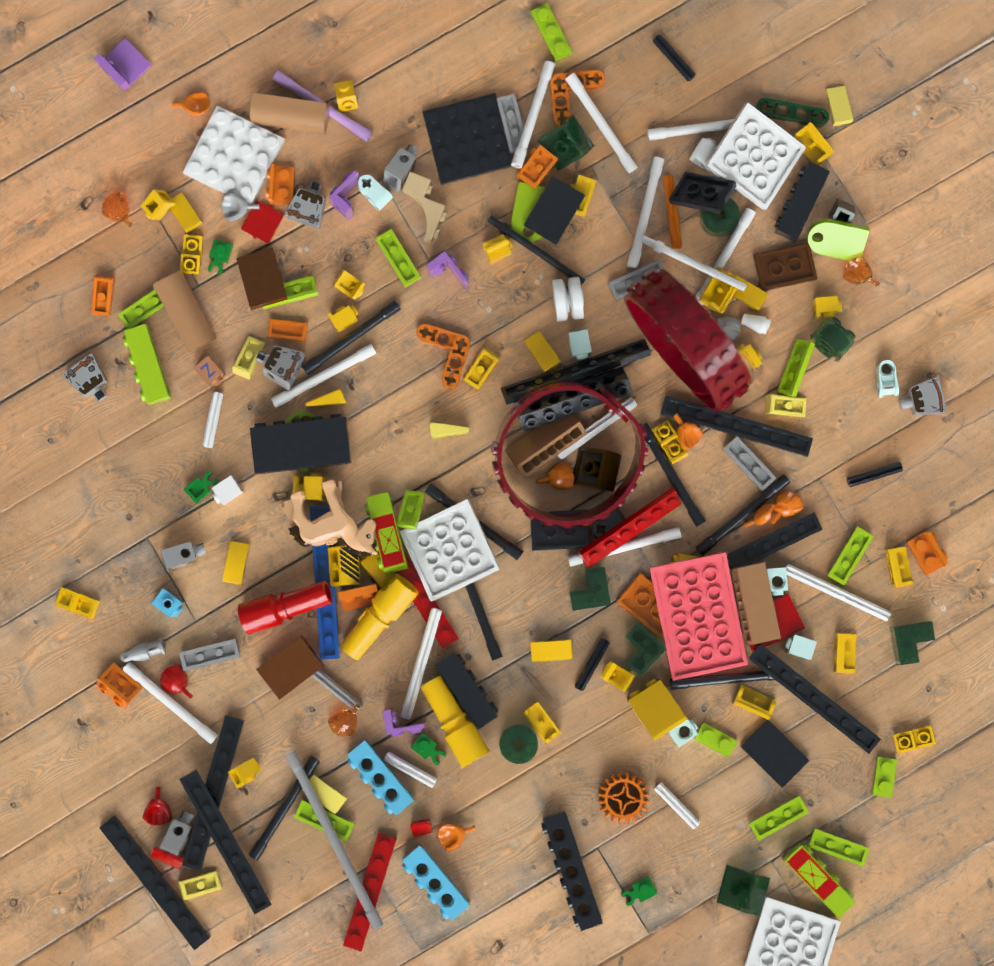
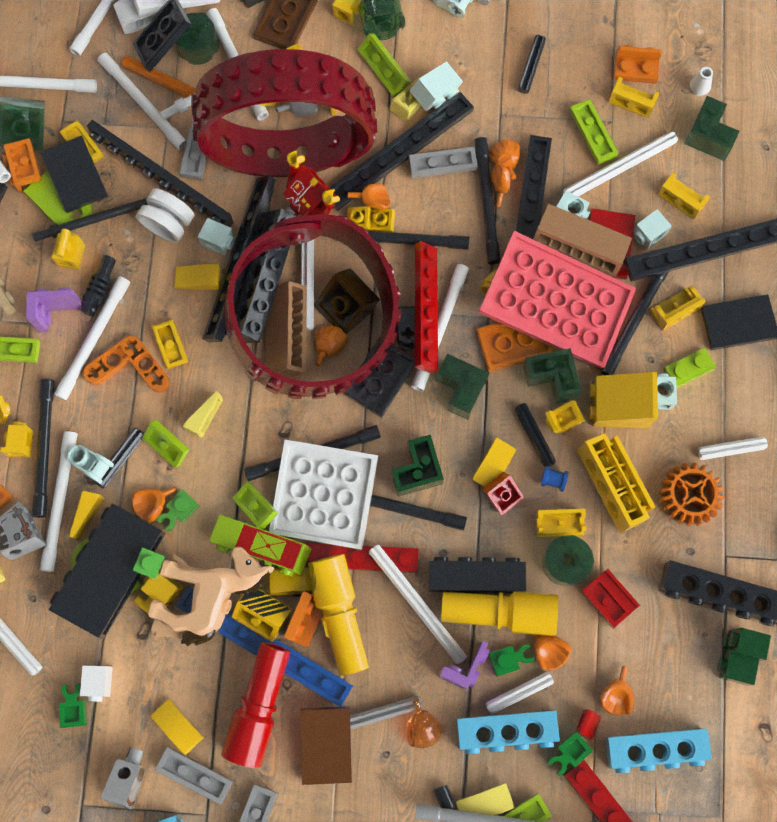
camera: 55 degrees left, 10 degrees down
(214, 596) = (194, 775): none -> light grey plate
(323, 470) = (148, 563): none -> bright green plate
(361, 381) = (88, 462): none -> light aqua piece
(364, 437) = (150, 502): none -> orange piece
(376, 460) = (180, 507): none -> bright green plate
(380, 393) = (122, 455): none -> axle
(396, 828) = (572, 751): none -> green plate
(407, 319) = (69, 380): none -> white piece
(410, 418) = (165, 443): none -> lime plate
(450, 773) = (551, 651): none -> orange piece
(487, 288) = (97, 287): none -> black hinge
(511, 607) = (423, 471): none -> dark green brick
(513, 788) = (610, 598): none -> red plate
(534, 670) = (502, 493): none -> red piece
(534, 899) = (742, 655): none -> dark green brick
(570, 698) = (554, 478): none -> blue bush
(596, 733) = (604, 478): none -> yellow brick
(597, 262) = (153, 170): none -> black plate
(656, 385) = (307, 190): none -> red torso
(802, 419) = (436, 86): none -> light aqua brick
(940, 609) = (702, 81): none -> white cone

